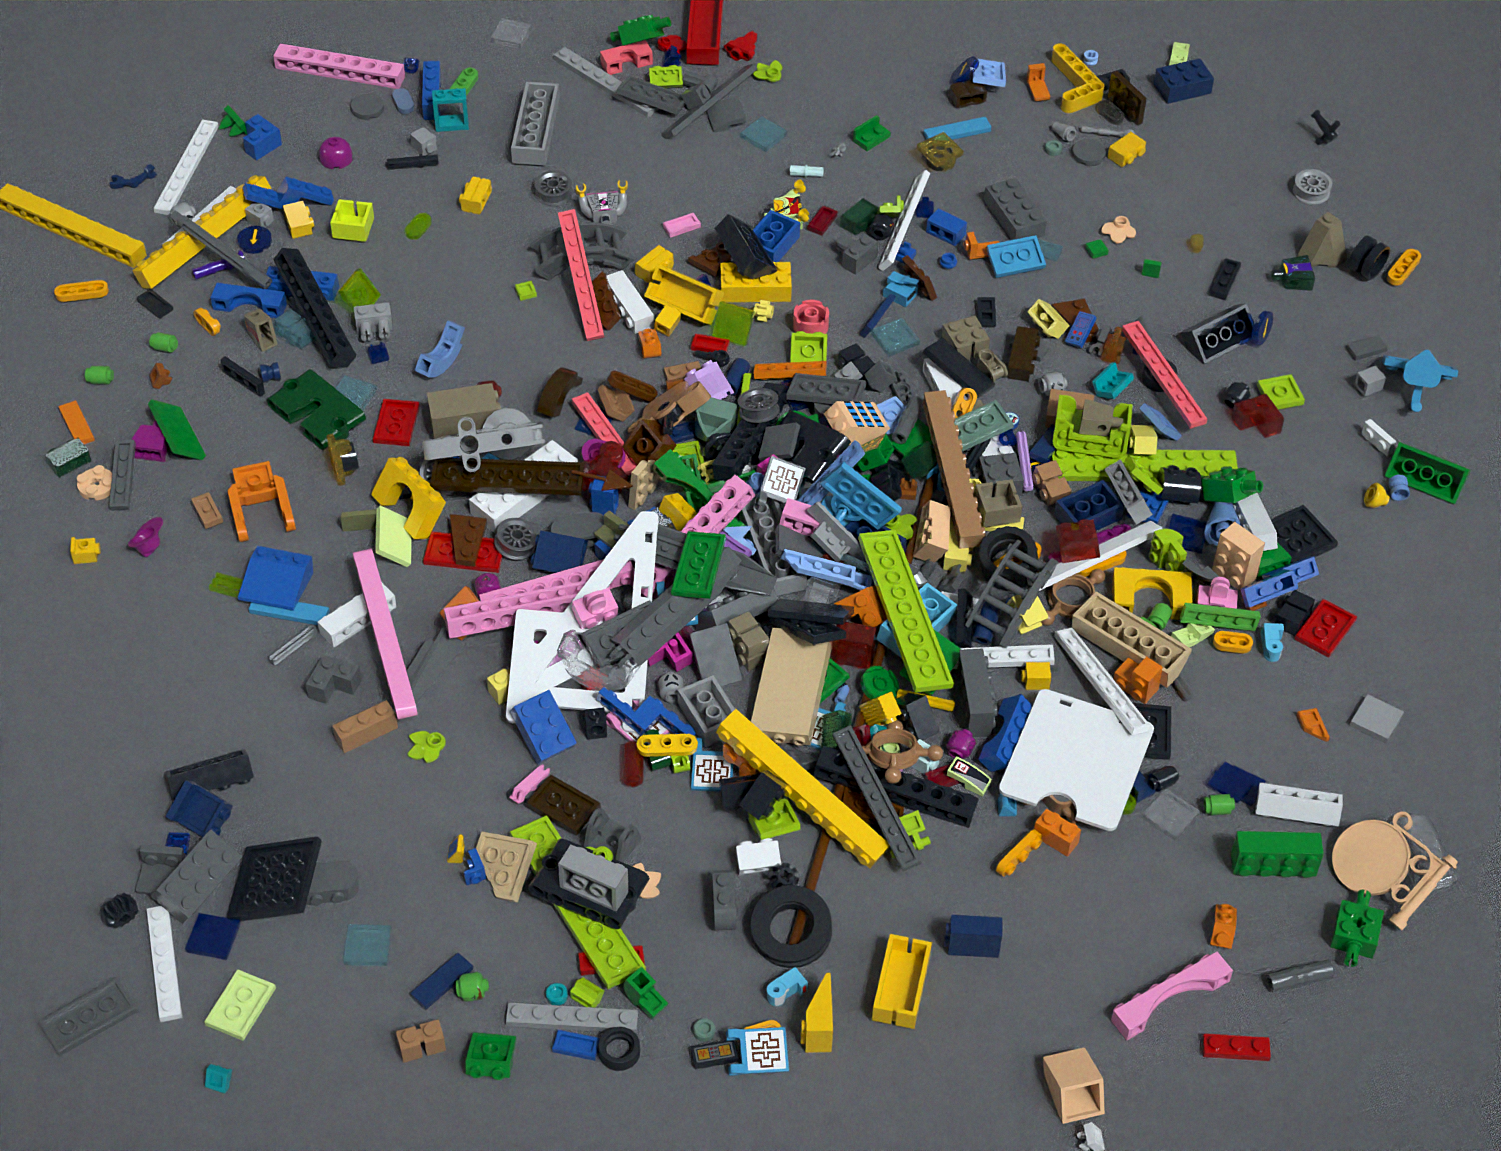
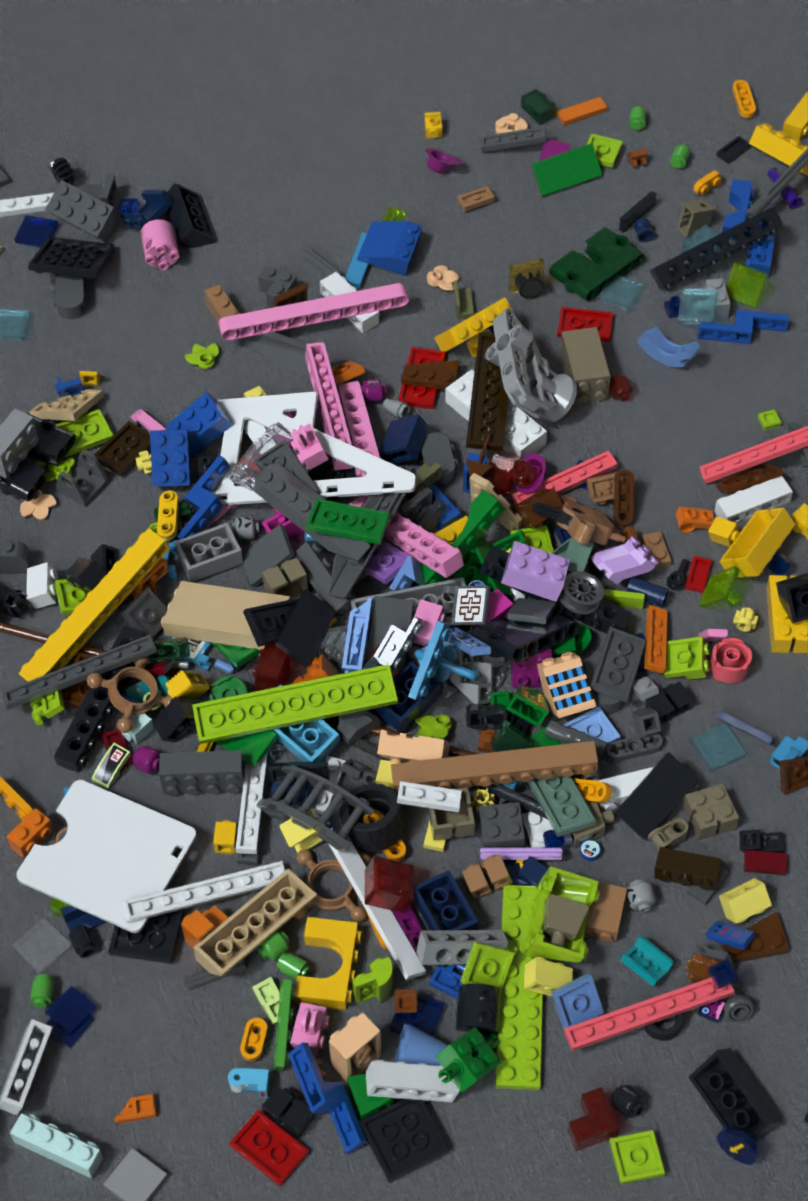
camera: 95 degrees right, 5 degrees up
(137, 404) = (605, 149): none -> lime plate
(251, 793) = (159, 244): none -> bright pink cylinder
(256, 485) = (498, 223): orange plate -> none
(323, 538) = (442, 277): none -> light nougat plate
(361, 656) = (292, 296): none -> reddish brown plate
(390, 326) = (697, 306): none -> clear light blue tile
(391, 537) = (432, 319): yellowish green tile -> none
(409, 301) = (743, 326): none -> blue bracket
(509, 568) = (397, 408): none -> light grey cone
(515, 538) = (440, 408): flat silver wheel -> none
(557, 390) = (622, 437): dark brown arch -> none
(585, 780) = (144, 462): none -> light yellow gear
(591, 746) = (170, 457): none -> blue brick
(632, 765) = (151, 497): clear red brick -> none
(745, 429) = (535, 571): none -> lavender brick
(787, 328) = (714, 635): none -> bright pink tile
(994, 505) = (429, 796): none -> white plate
(999, 750) = (171, 805): blue arch -> none
(1004, 311) = (765, 862): none -> dark red tile
(1132, 319) = (723, 974): none -> clear blue tile
(1180, 527) = (406, 1001): none -> dark orange tile
(1205, 575) = (339, 1009): dark grey slope -> none
(1363, 776) = (56, 1145): none -> light aqua brick

